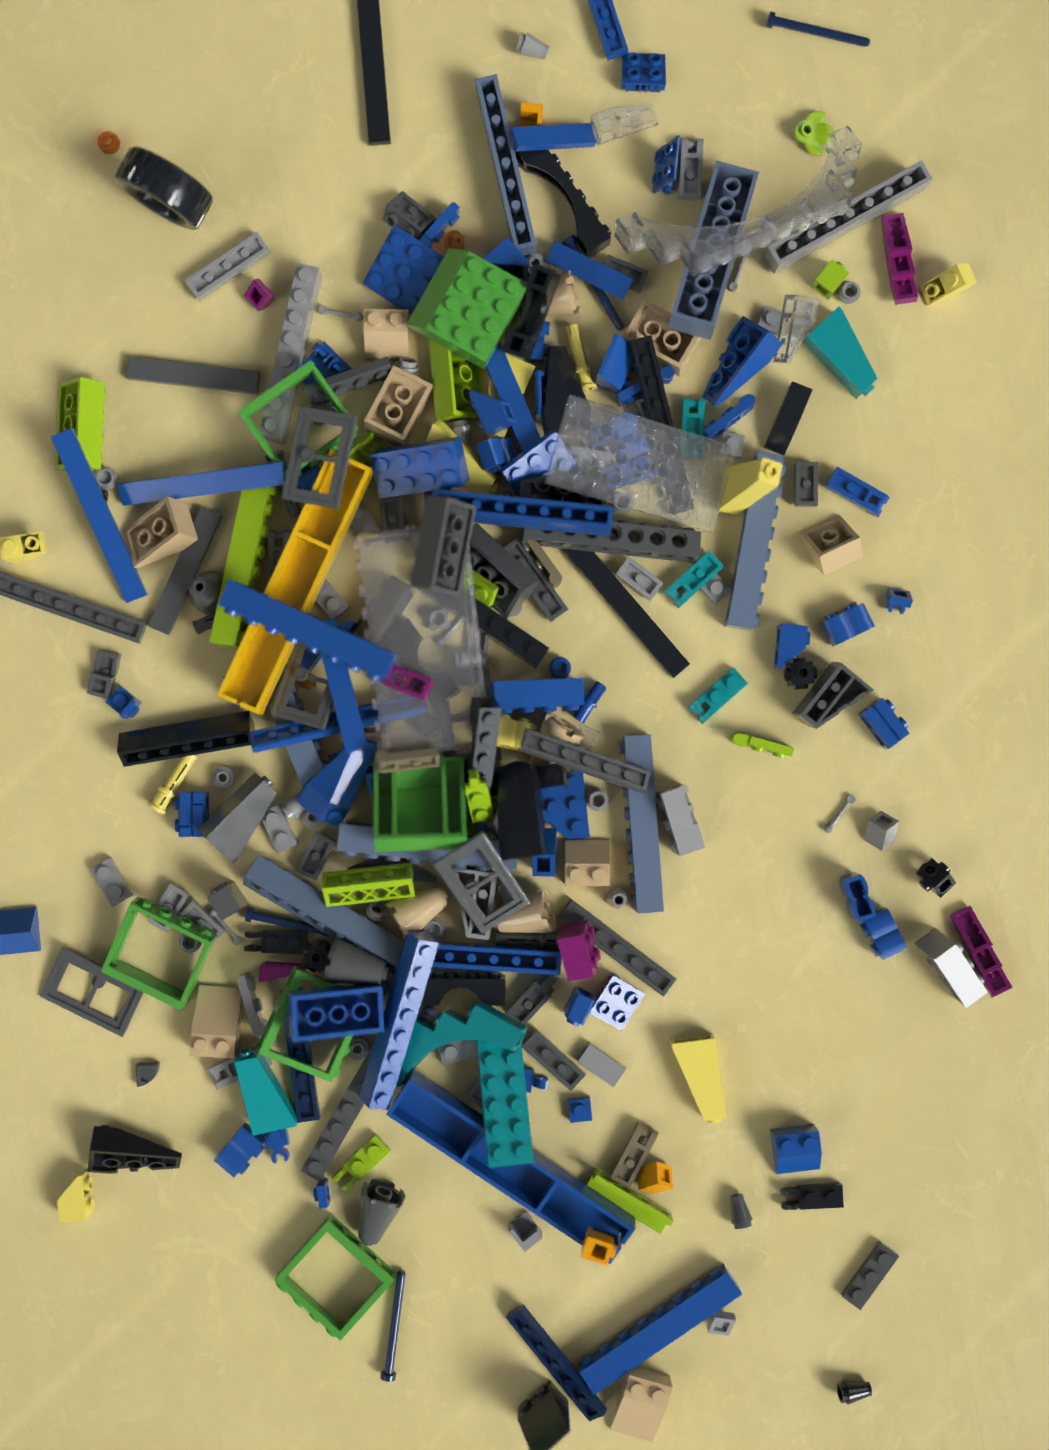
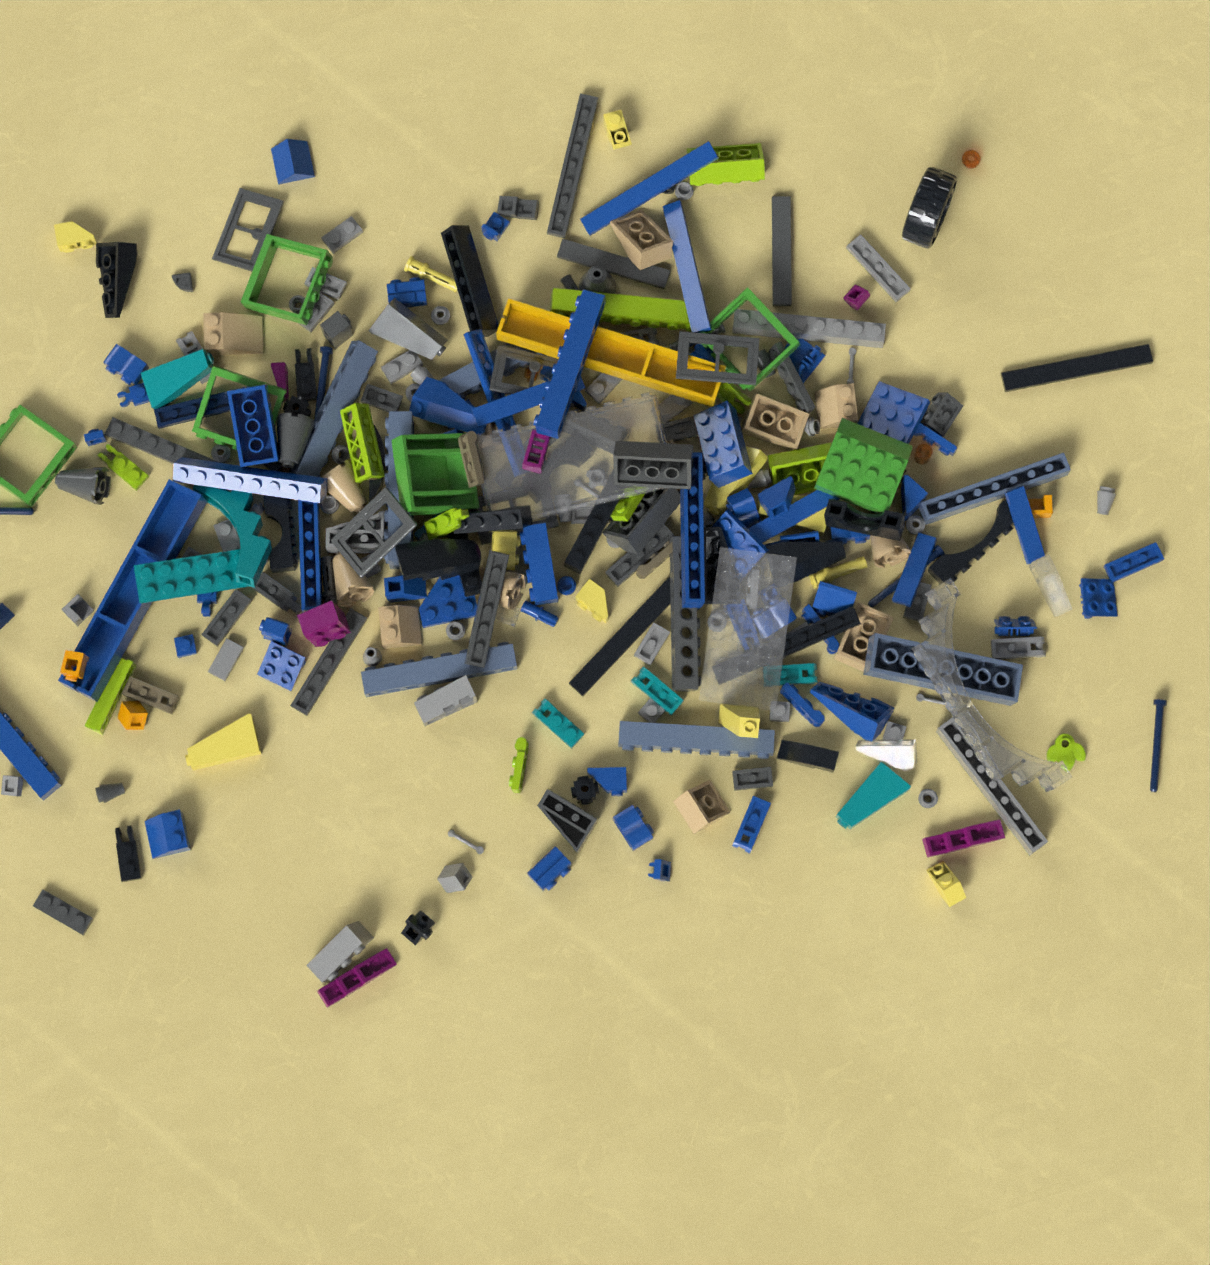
camera: 85 degrees right, 10 degrees down
(236, 939) = (303, 343): light grey hinge -> none
(252, 1004) = (251, 360): light grey plate -> none
(581, 637) = (594, 599): none -> light yellow slope
(830, 279) = (937, 779): lime brick -> none
(858, 902) = (389, 862): blue brick -> none
(883, 934) = (364, 889): blue brick -> none

